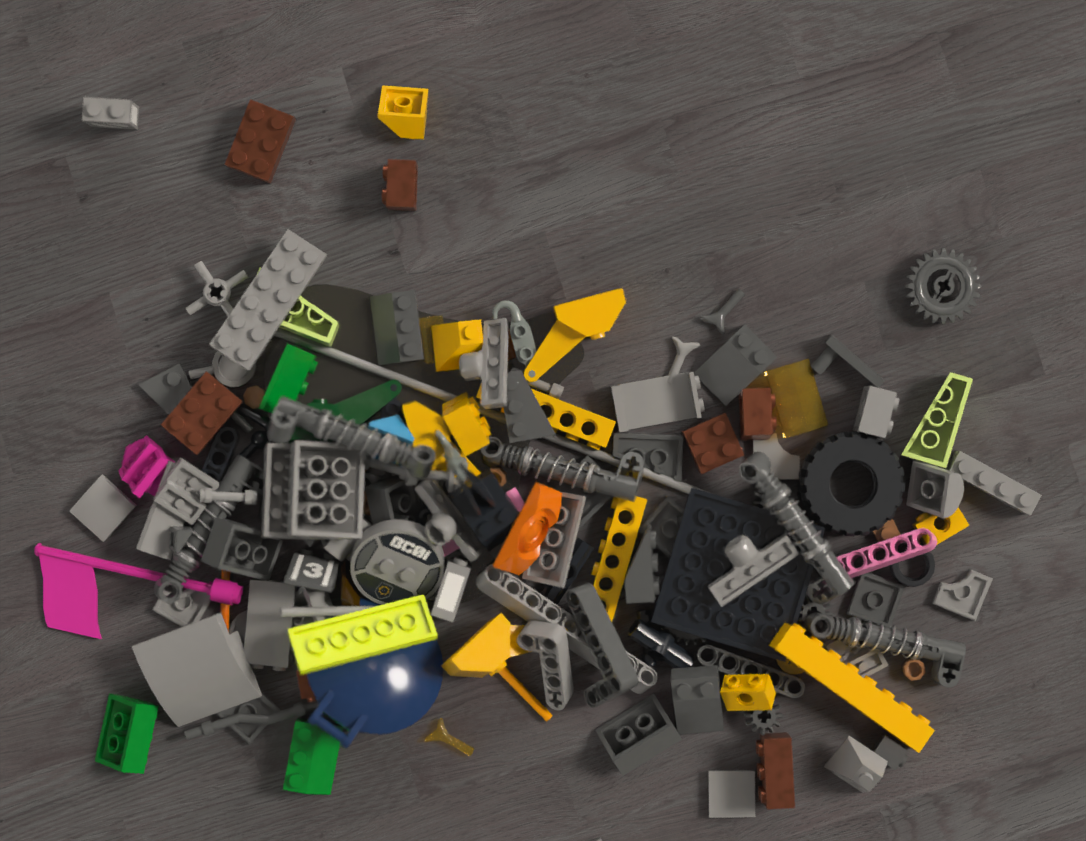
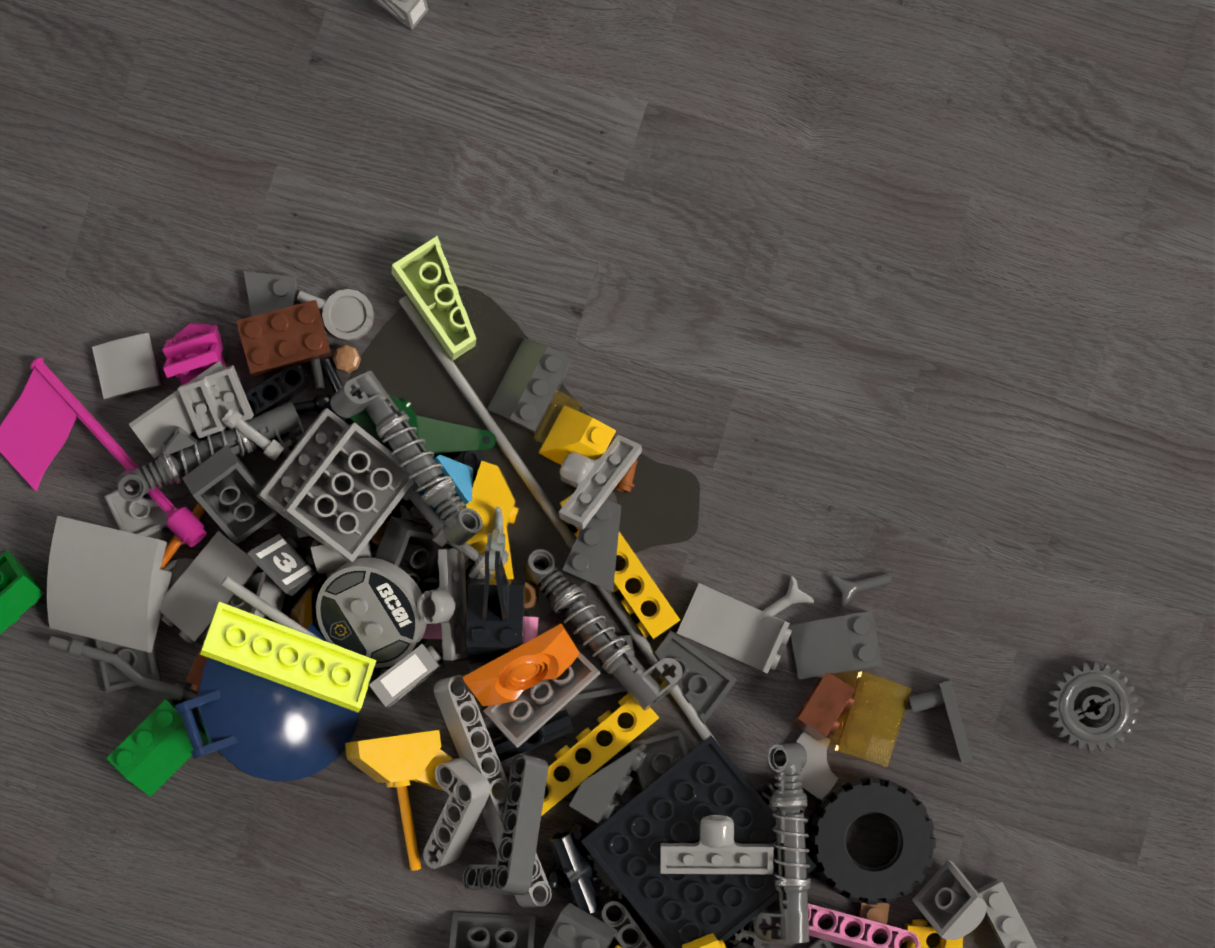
camera: 35 degrees right, 5 degrees down
(211, 283) = (386, 239): light grey bar -> none
(260, 141) = (521, 118): copper brick -> none
(268, 300) = (423, 272): light grey plate -> none
(289, 377) = (393, 360): green slope -> none
(401, 185) = (628, 249): copper brick -> none
(404, 110) = (679, 182): yellow slope -> none
(441, 734) = (298, 812): clear yellow piece -> none
(466, 424) = (532, 522): yellow piece -> none
(554, 390) = (641, 548): light grey bar -> none
(573, 323) = (706, 495): yellow slope -> none
(712, 443) = (761, 707): copper brick -> none
(876, 411) = (944, 785): light grey brick -> none
(937, 430) = (997, 843): yellowish green wedge -> none

